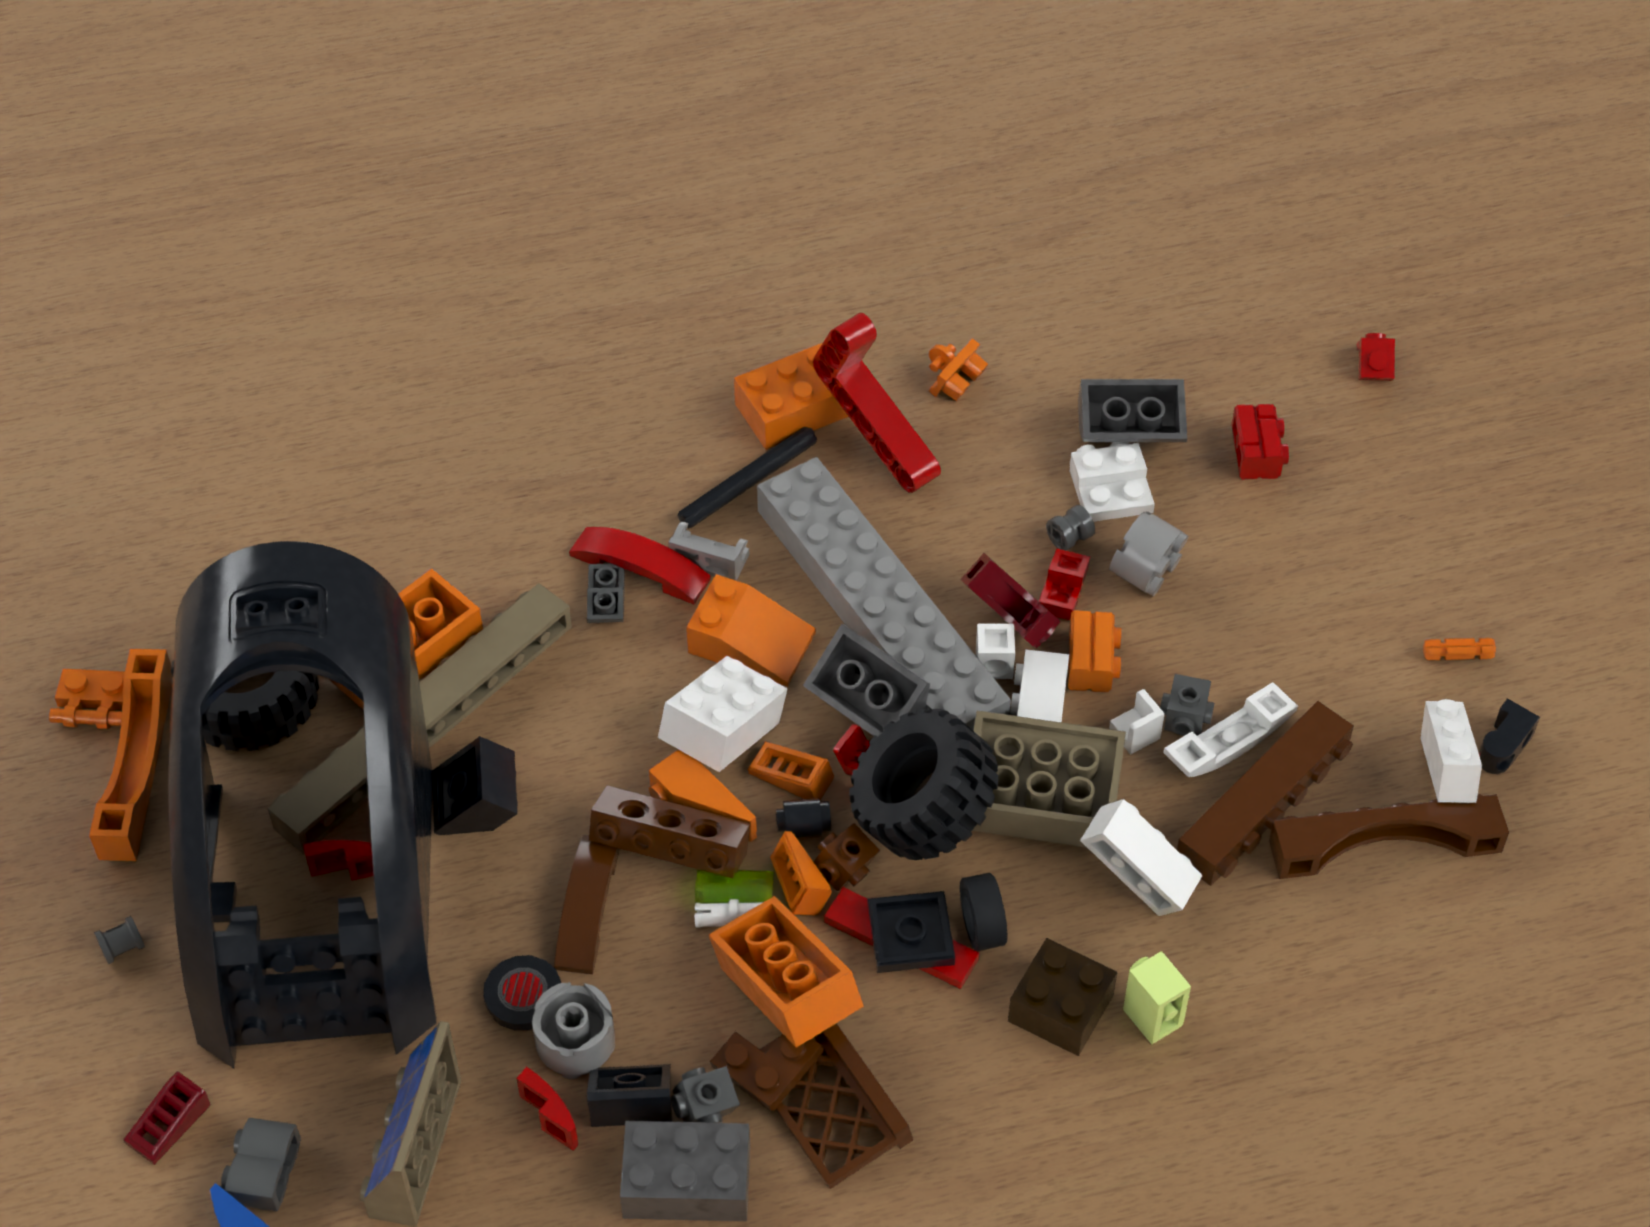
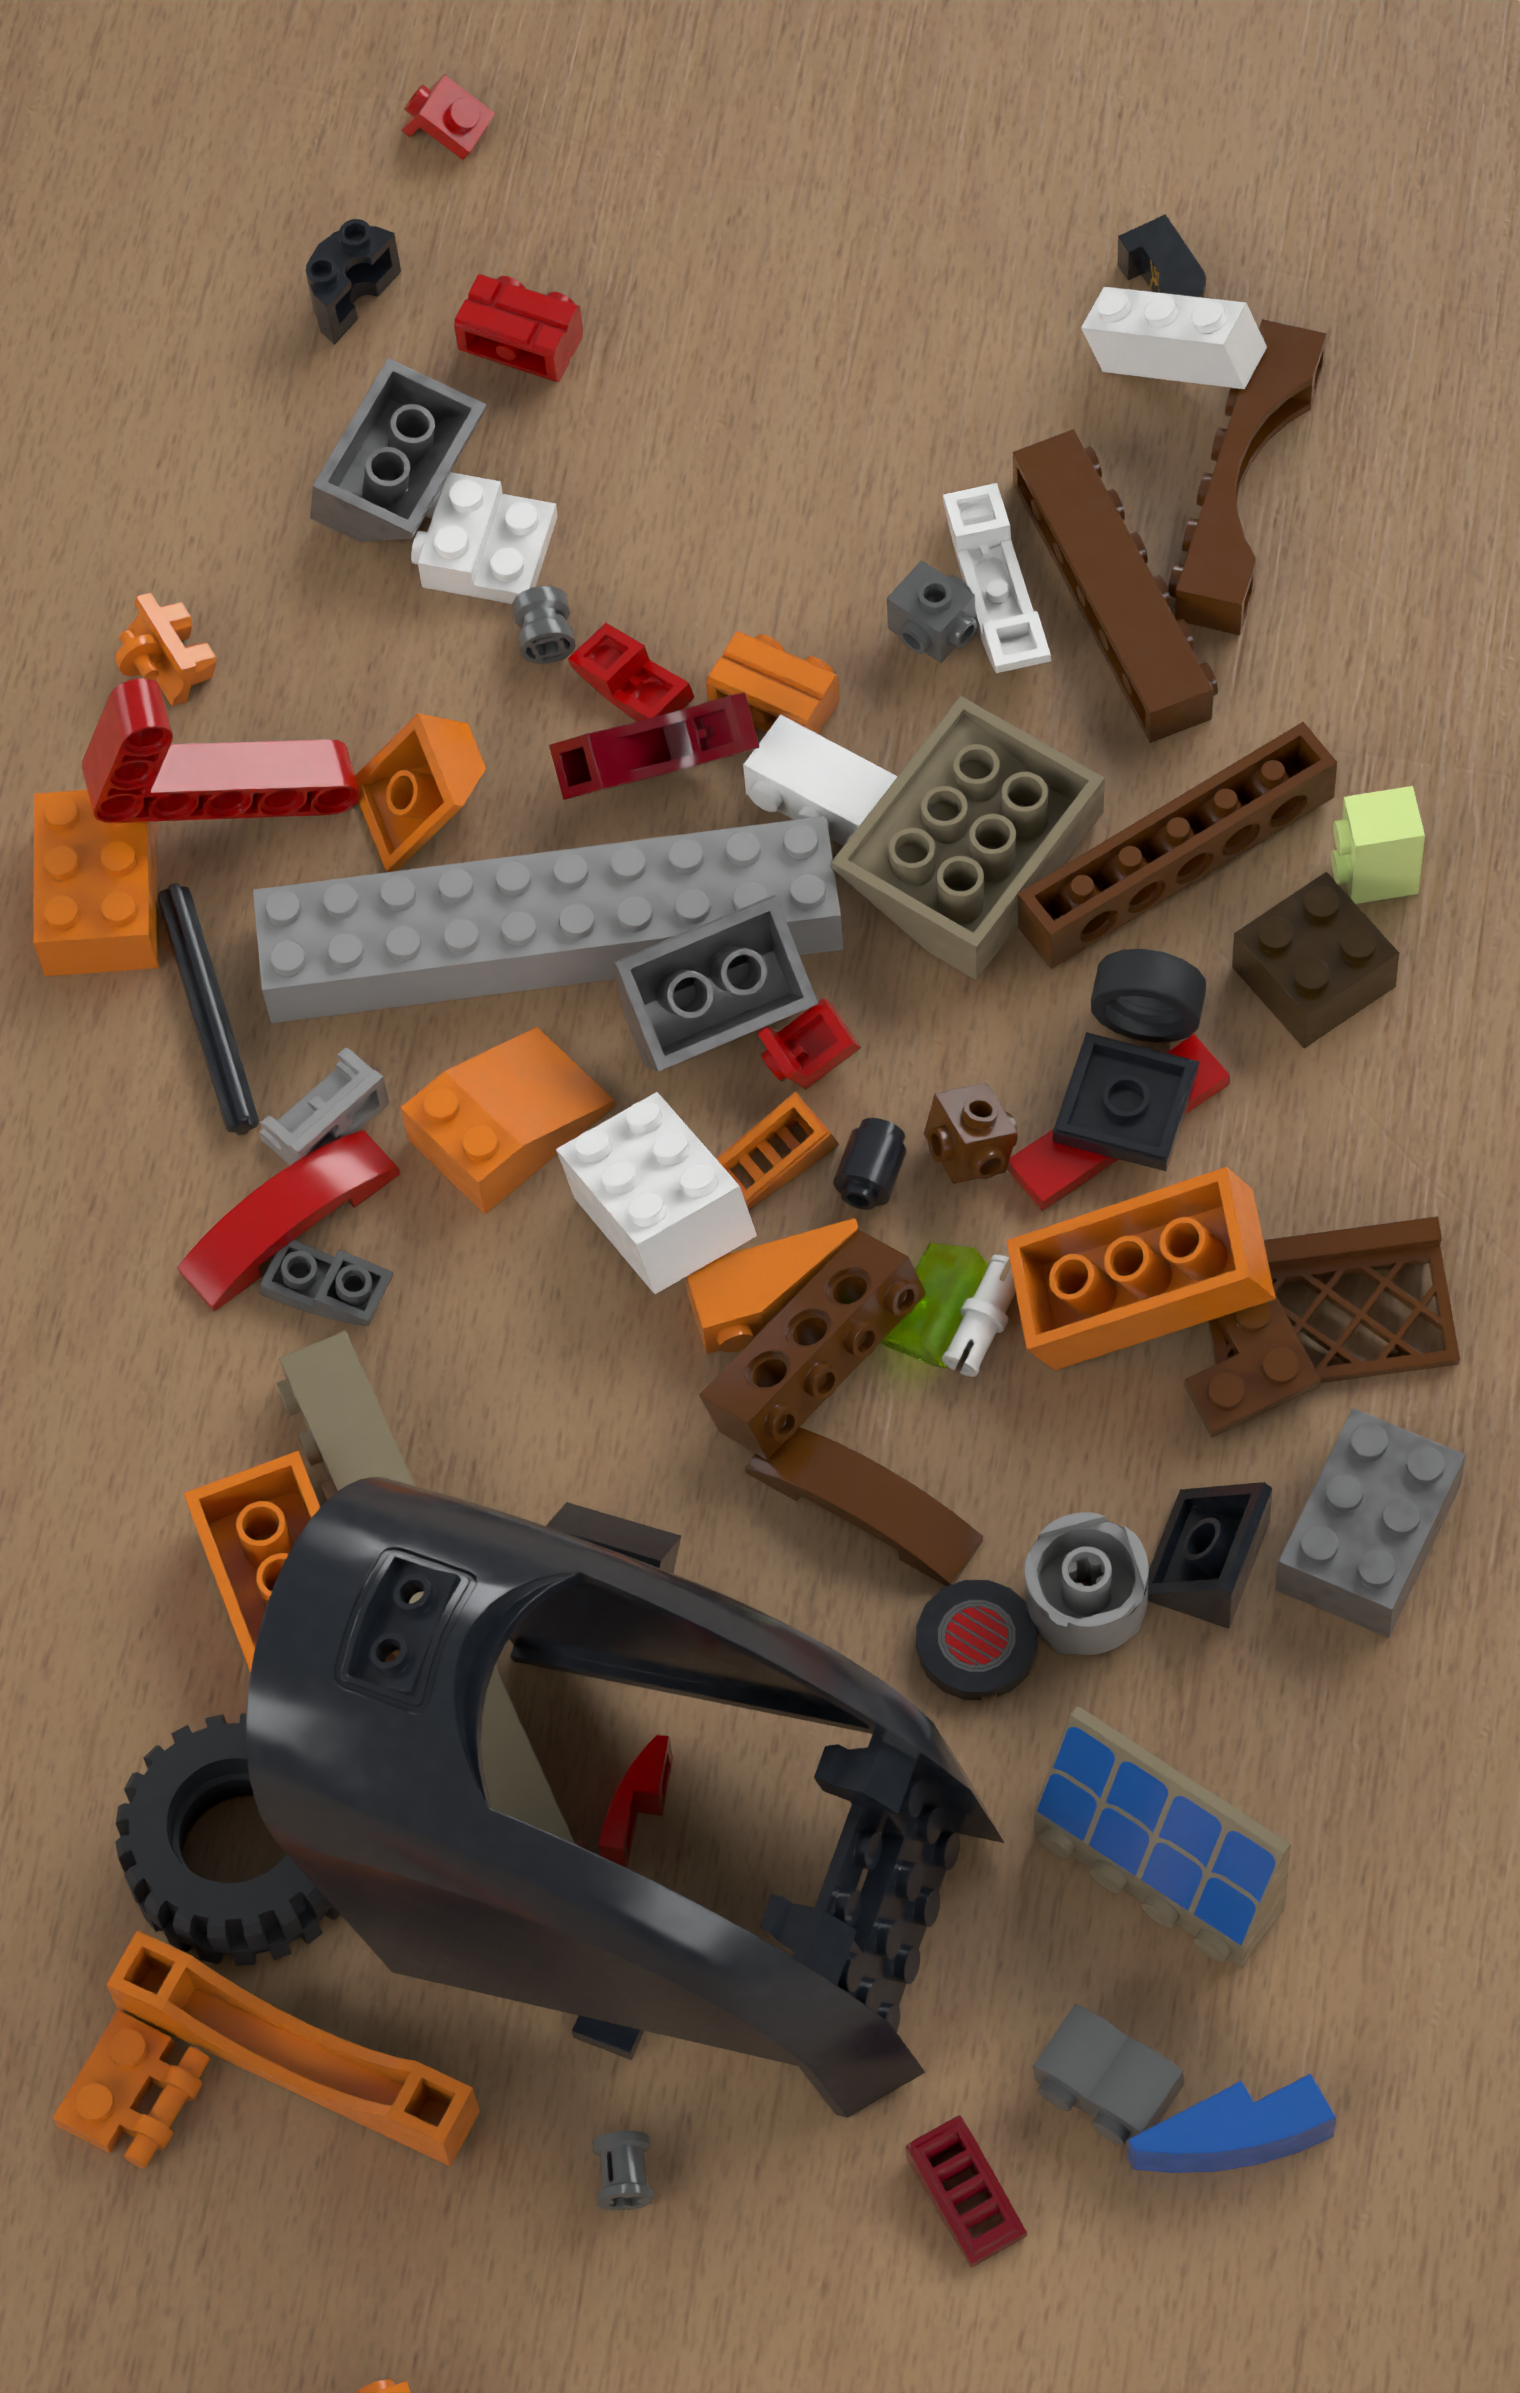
camera: 60 degrees left, 10 degrees up
(553, 1113) = (1207, 1658): red slope -> none
(704, 1096) = (1274, 1449): dark grey brick -> none
(799, 878) = (982, 1188): orange slope -> none
(936, 511) = (417, 785): none -> orange slope
(948, 803) = (860, 987): black tyre -> none
(996, 649) = (719, 798): white brick -> none
(1099, 890) = (1176, 845): none -> reddish brown brick
(1141, 724) = (921, 683): white panel -> none
(1141, 857) = (1156, 762): white brick -> none
(1148, 552) = (654, 542): light grey brick -> none
(1238, 349) = (346, 267): none -> black cylinder
(1459, 648) = (992, 257): orange axle -> none

